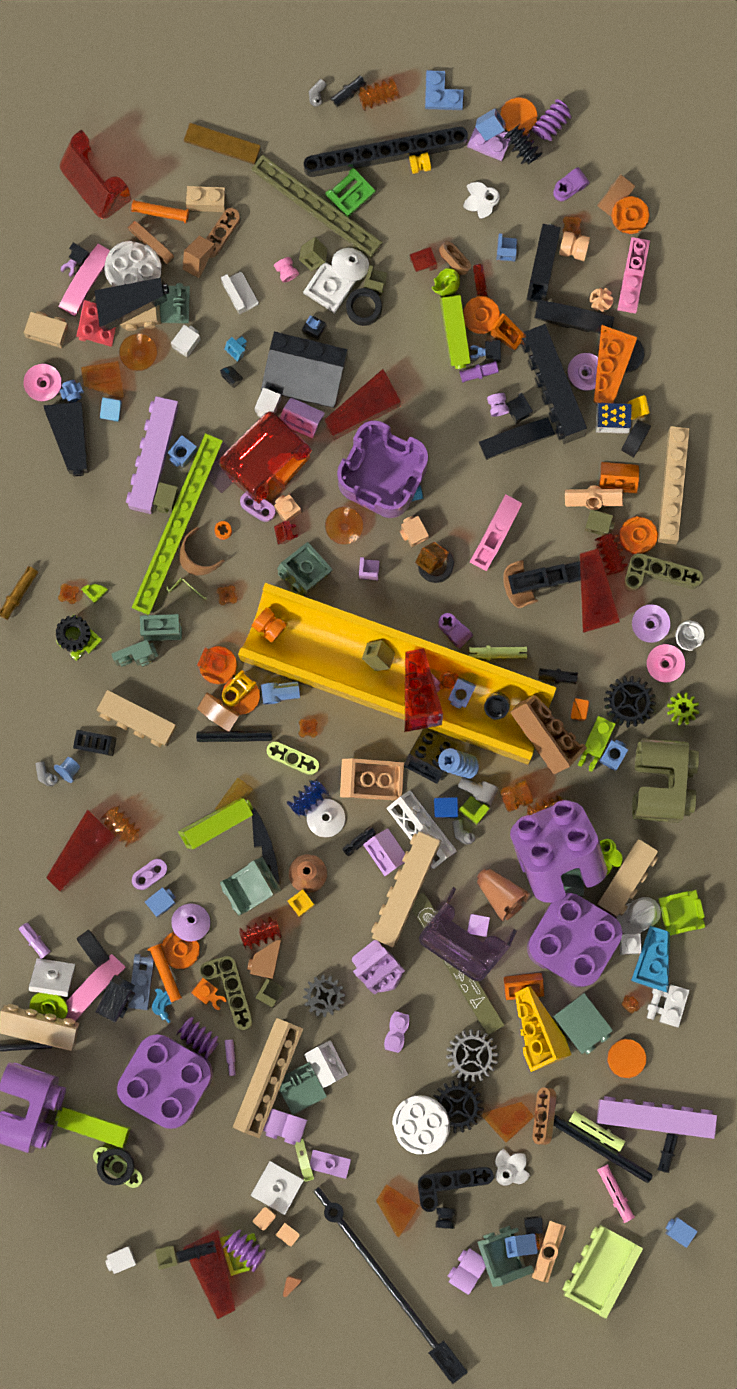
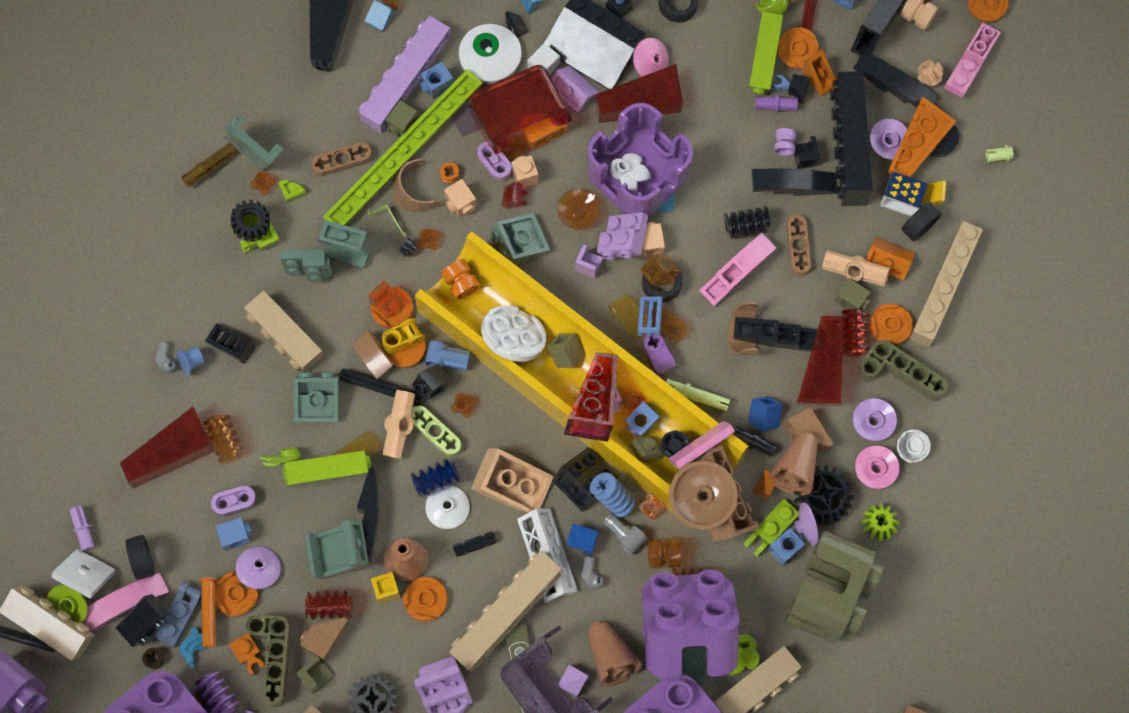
camera: 15 degrees right, 10 degrees down
(64, 574) = (248, 146): none -> sand green panel
(138, 1029) = (150, 652): none -> dark brown bush
(141, 545) = (358, 160): none -> medium nougat beam
(180, 822) = (287, 455): none -> lime plate
(185, 765) = (316, 397): none -> sand green plate
(212, 608) = (408, 247): none -> black plate
(218, 410) = (490, 53): none -> white tile
(241, 551) = (460, 199): none -> light nougat brick
(261, 764) = (398, 424): none -> light nougat piece
(275, 719) = (431, 382): none -> black brick
(330, 657) = (513, 333): none -> white tile
(335, 900) = (425, 599): none -> orange tile
(353, 368) = (644, 56): none -> bright pink dish
(379, 480) = (629, 170): none -> white plate
(385, 851) = (498, 564): lavender panel -> none
(390, 537) = (623, 236): none -> lavender plate
(419, 604) = (627, 315): none -> clear yellow plate
(440, 613) = (649, 329): none -> medium blue tile
(454, 598) = (670, 323): none -> clear orange plate
(473, 715) = (646, 448): none -> olive plate
(474, 810) = (612, 554): lime panel -> none
(490, 488) = (747, 222): none -> black piece
(492, 765) = (650, 512): none -> clear orange plate
(518, 701) = (701, 445): none -> bright pink tile
(528, 481) = (806, 260): none -> medium nougat beam
(531, 757) = (686, 491): none -> medium nougat dish
(559, 649) = (765, 413): none -> blue panel
(599, 651) = (809, 422): none -> medium nougat slope
(600, 686) = (797, 465): none -> nougat cone
(624, 733) = (807, 524): none -> lavender dish
(682, 352) = (998, 154): none -> yellowish green pin

